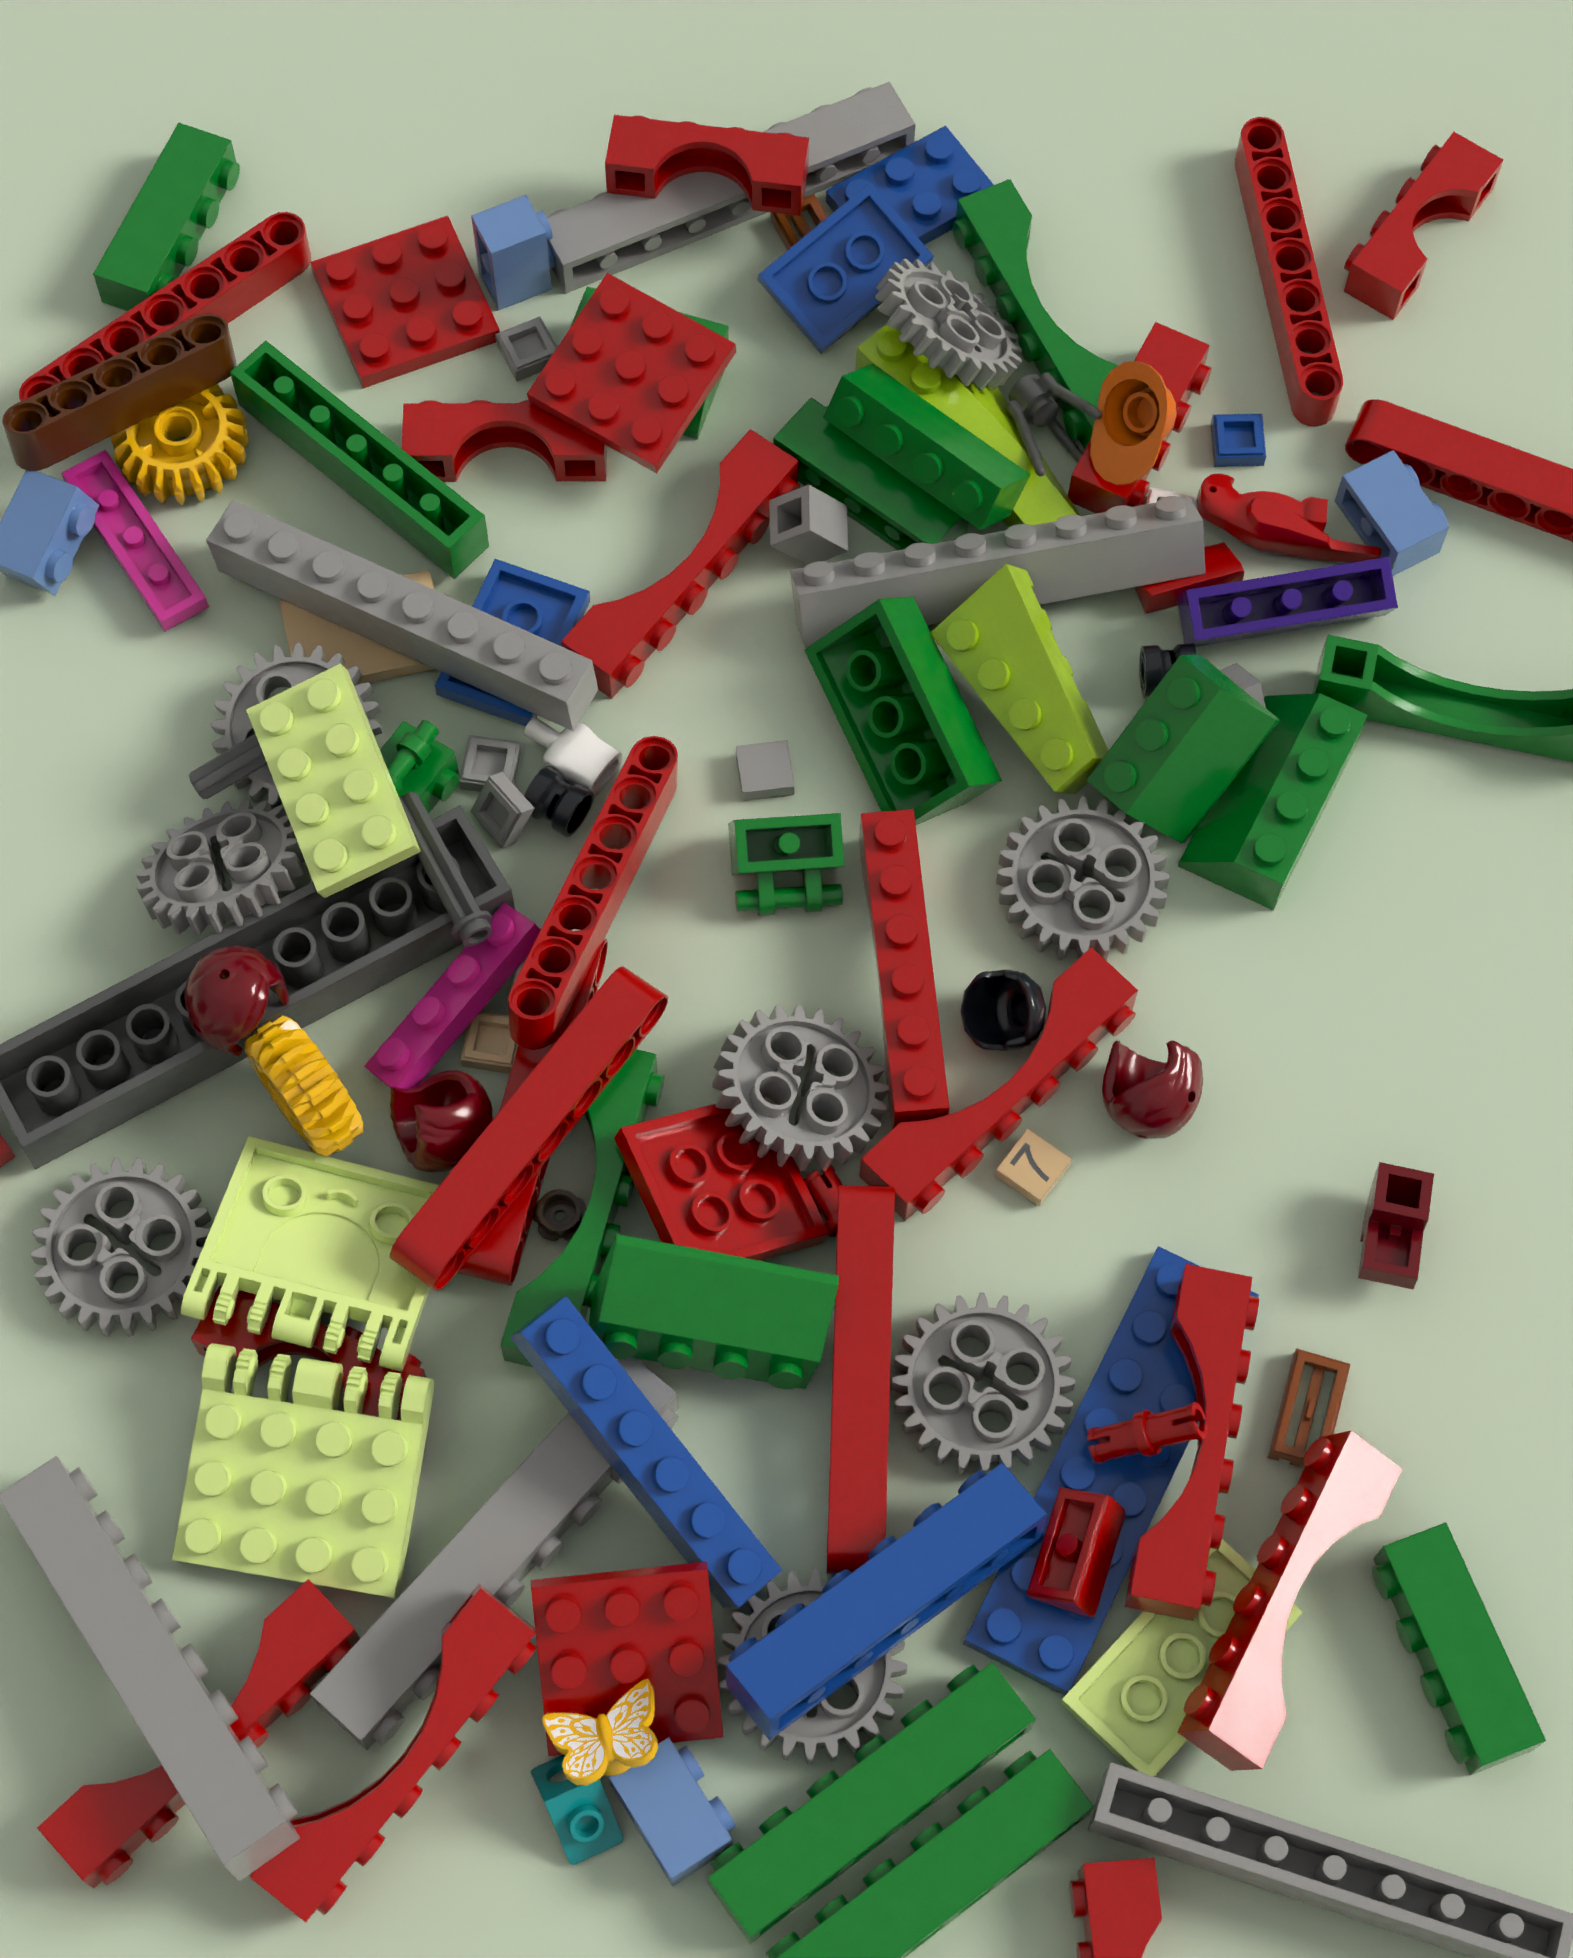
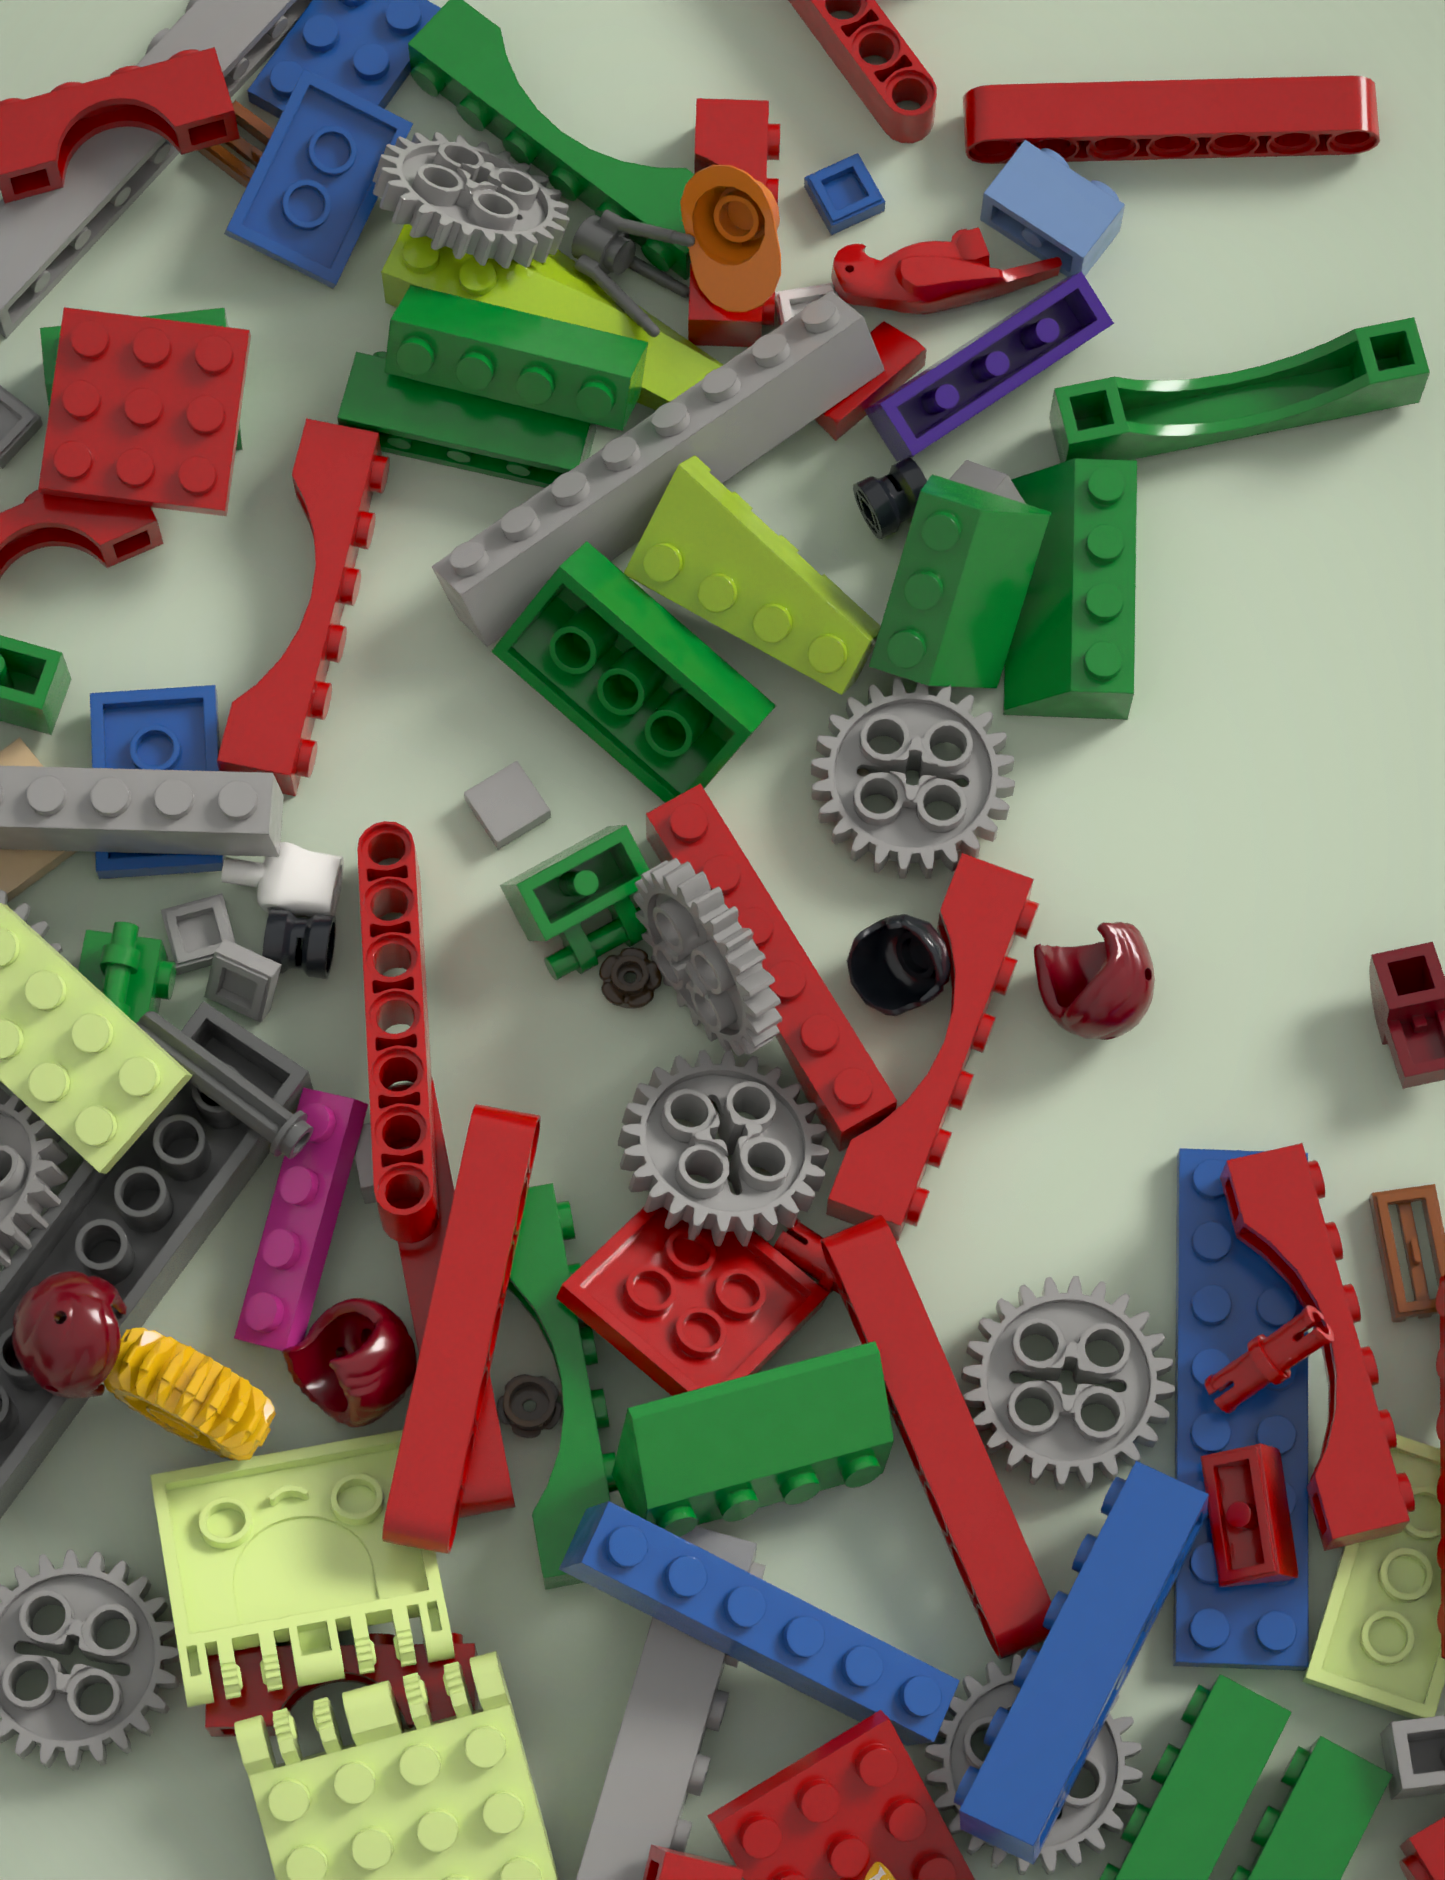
camera: 25 degrees left, 5 degrees up
(489, 1044) = (361, 1248): tan tile -> none
(789, 947) = (627, 994): none -> dark brown plate
(808, 525) = (424, 503): light grey brick -> none
(853, 935) = (707, 957): none -> light grey gear
(1033, 1167) = (1008, 1121): tan tile -> none

